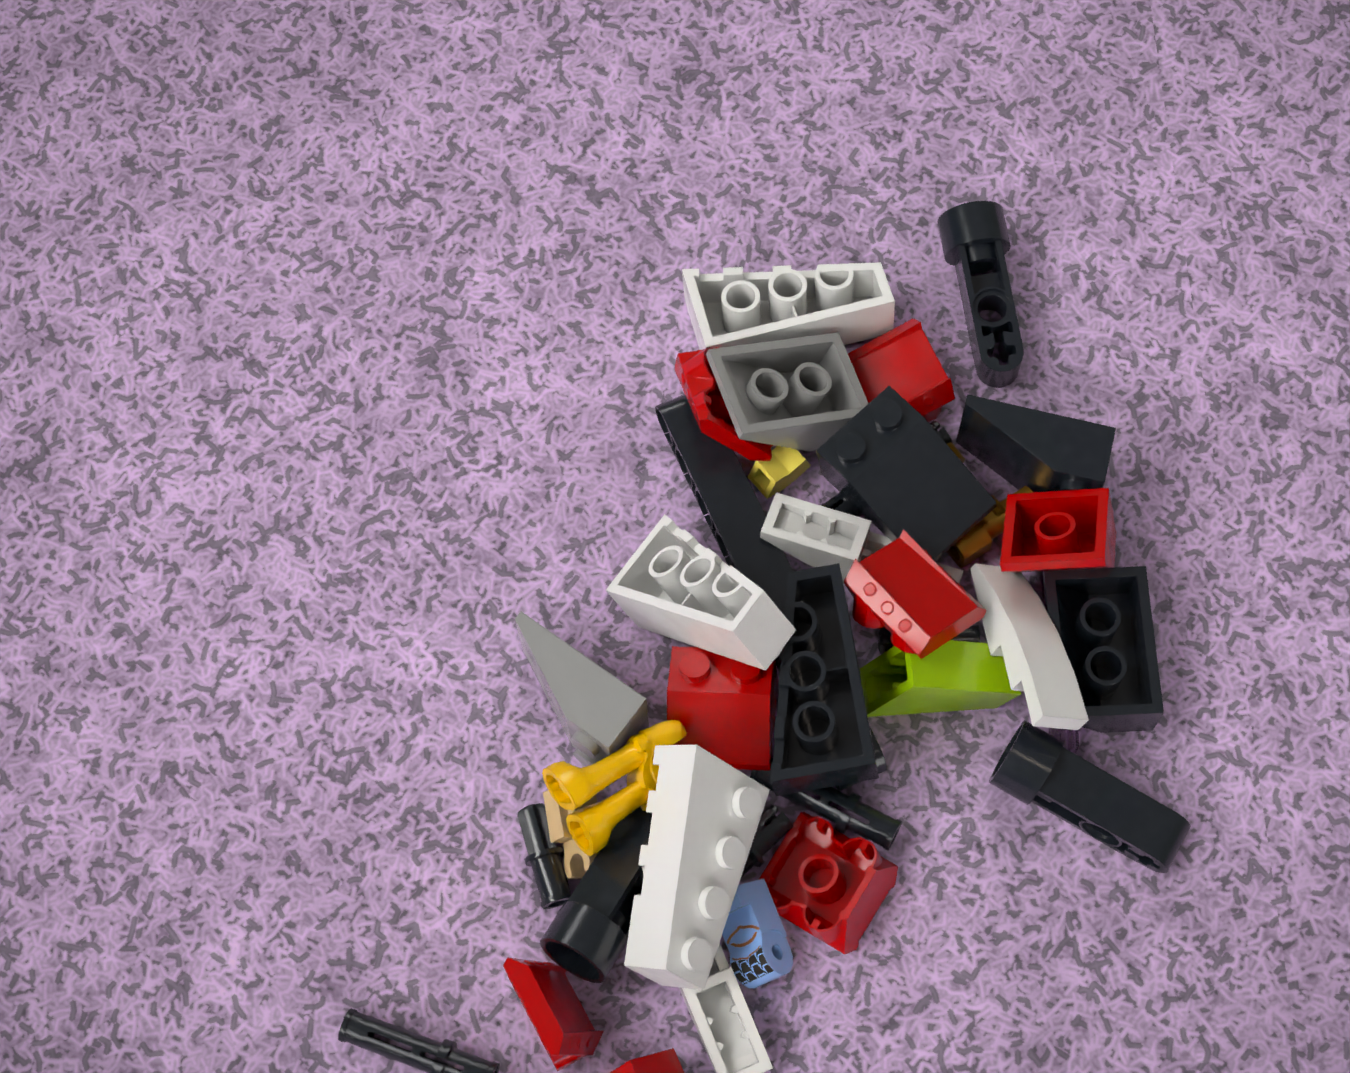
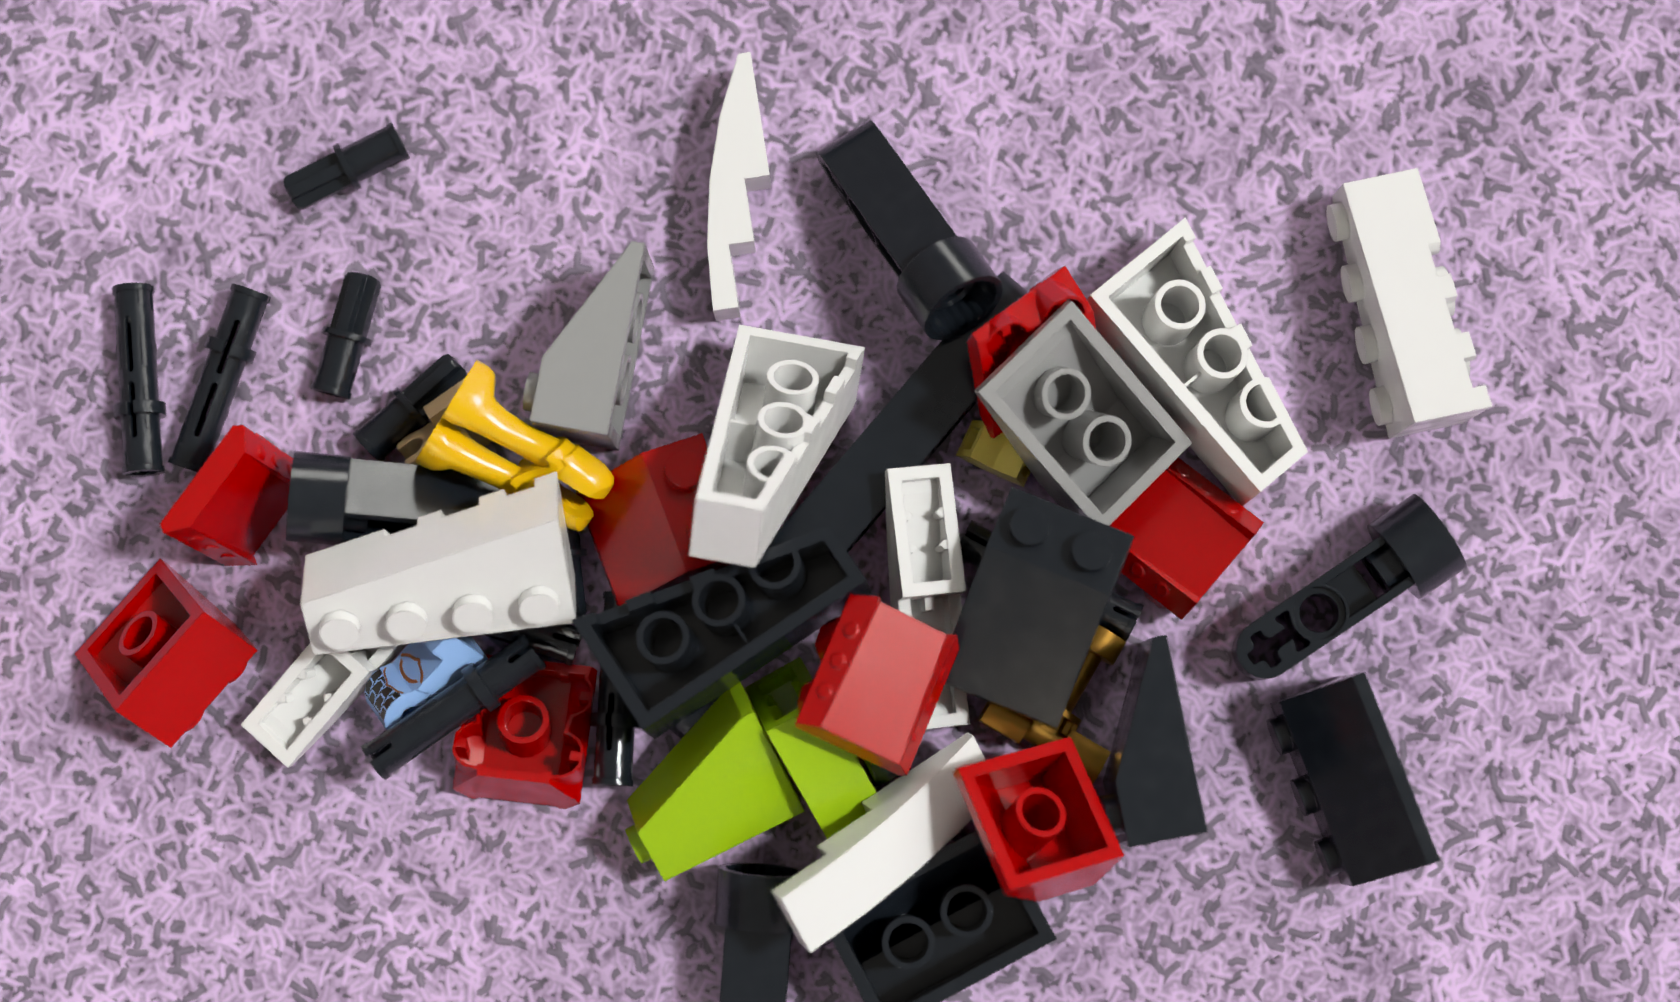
camera: 65 degrees right, 15 degrees up
(340, 822) = (345, 167): none -> black axle
(450, 989) = (243, 308): none -> black pin
(466, 879) = (347, 335): none -> black axle
(489, 546) = (736, 168): none -> white slope
(596, 448) = (938, 273): none -> black beam
(783, 892) = (454, 706): none -> black pin
(809, 170) = (1404, 305): none -> white wedge
(931, 758) = (711, 790): none -> lime slope
(1116, 337) = (1351, 781): none -> black slope

